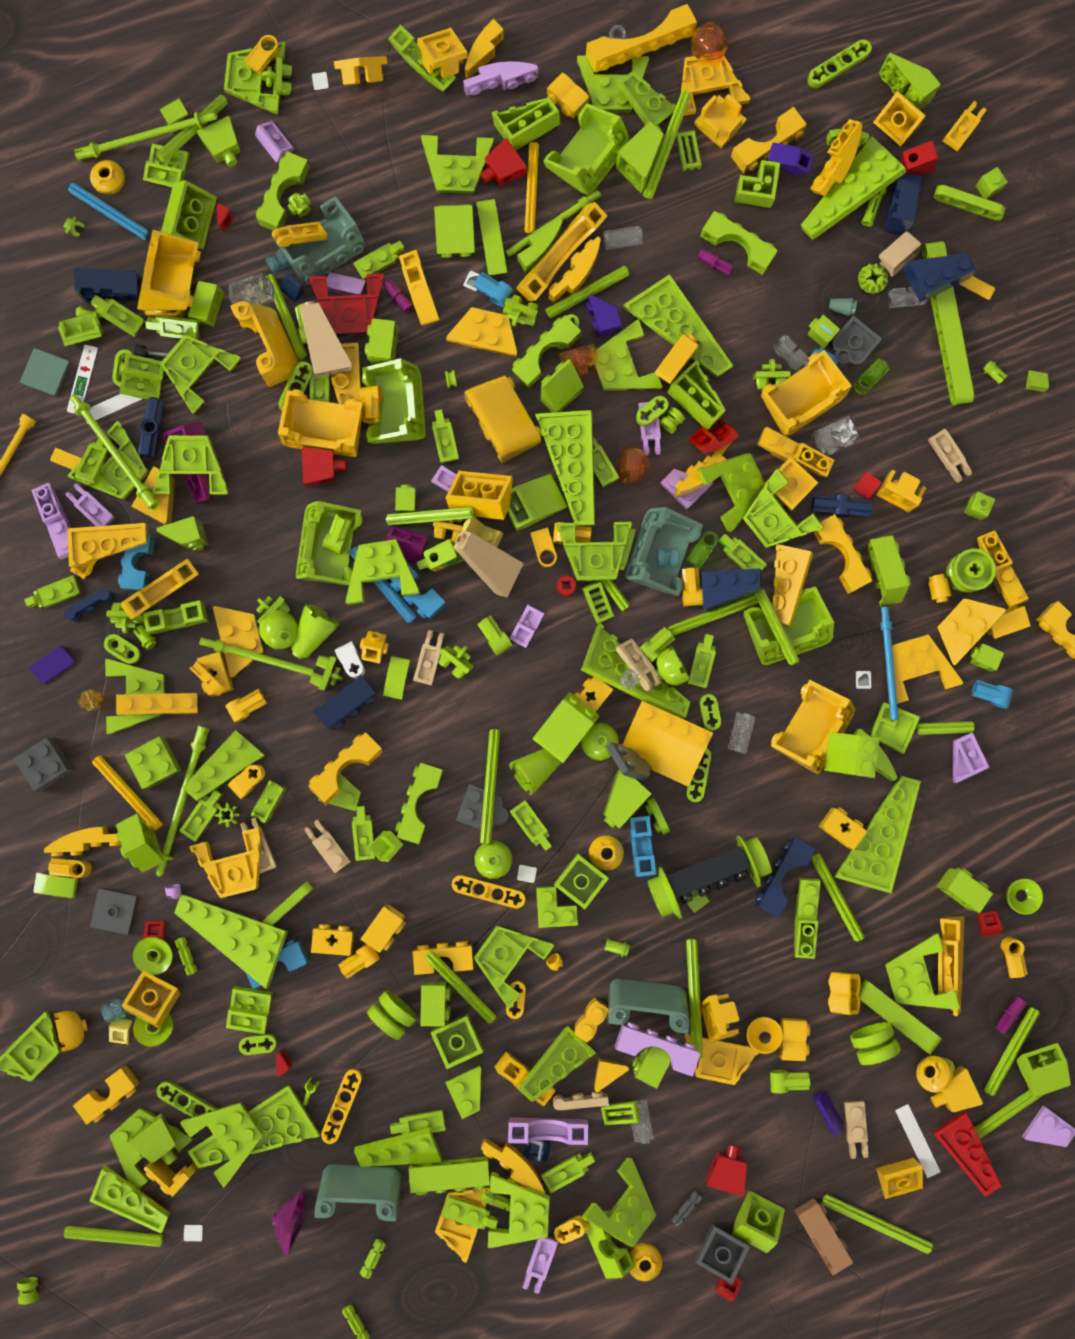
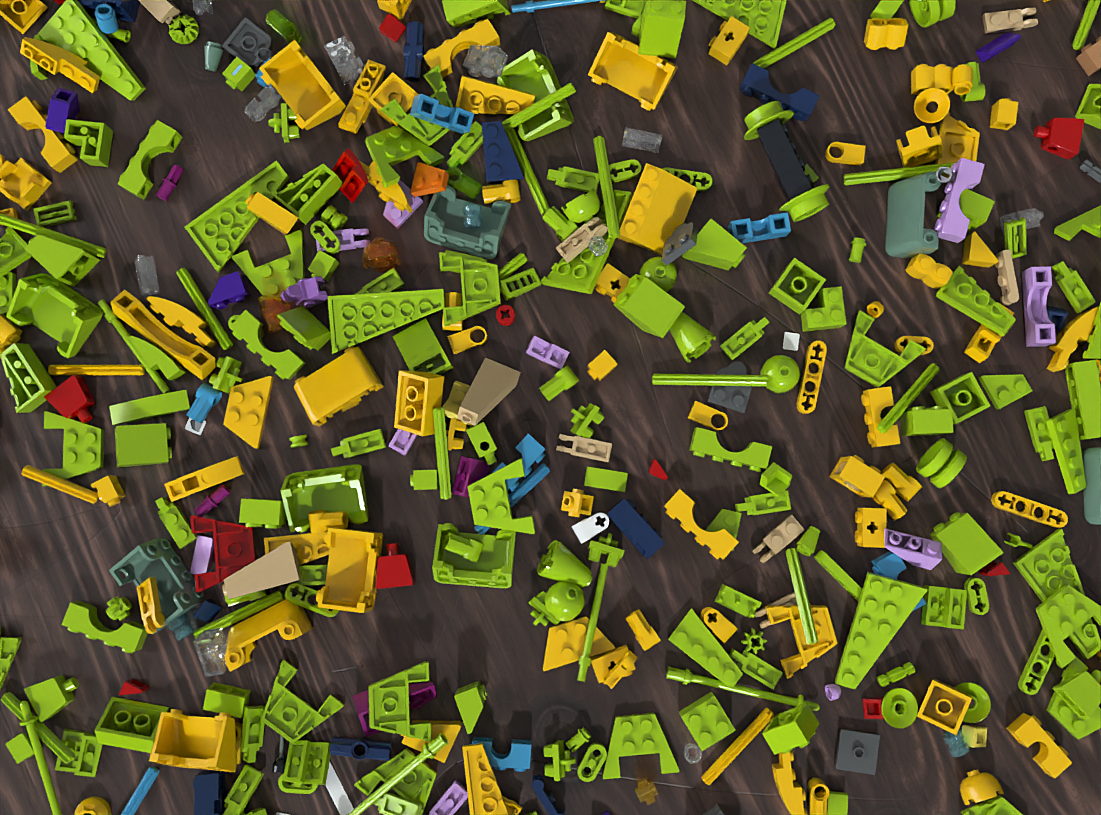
camera: 85 degrees left, 0 degrees up
(125, 742) = (699, 754): none -> clear bush
(156, 704) = (648, 721): yellow arch -> none
(159, 589) = (529, 727): yellow arch -> none
(167, 620) = (557, 708): lime arch -> none
(268, 863) = (801, 596): none -> lime axle
(273, 140) = (50, 640): lavender slope -> none
(308, 979) = (913, 549): none -> lavender slope
(310, 1033) = (965, 543): none -> lime slope
(322, 876) = (808, 541): none -> lime cone
(373, 977) = (904, 485): none -> yellow piece
(401, 728) = (656, 470): none -> red slope
(413, 198) = (109, 490): none -> yellow brick
(421, 152) = (60, 484): none -> yellow axle
(456, 779) = (702, 414): none -> yellow piece
(509, 678) = (601, 366): none -> yellow brick
(596, 389) = (306, 292): none -> medium lavender hinge
(597, 847) = (762, 273): yellow piece -> none
(623, 408) = (323, 266): none -> lime brick
(653, 809) = (734, 213): lime plate -> none
(679, 1032) = (947, 170): none -> hinge
(691, 692) = (606, 187): none -> lime axle
(705, 514) = (428, 180): none -> orange wing
(718, 948) = (851, 153): none -> yellow piece
(754, 1113) = (1003, 114): none -> yellow brick
(771, 529) = (447, 117): none -> dark azure arch
(790, 1068) = (962, 79): none -> yellow brick
(806, 918) = (816, 72): lime slope -> none
(826, 576) = (485, 61): none -> clear brick
(863, 679) = (583, 27): sticker -> none
(881, 203) = (106, 18): none -> dark azure brick

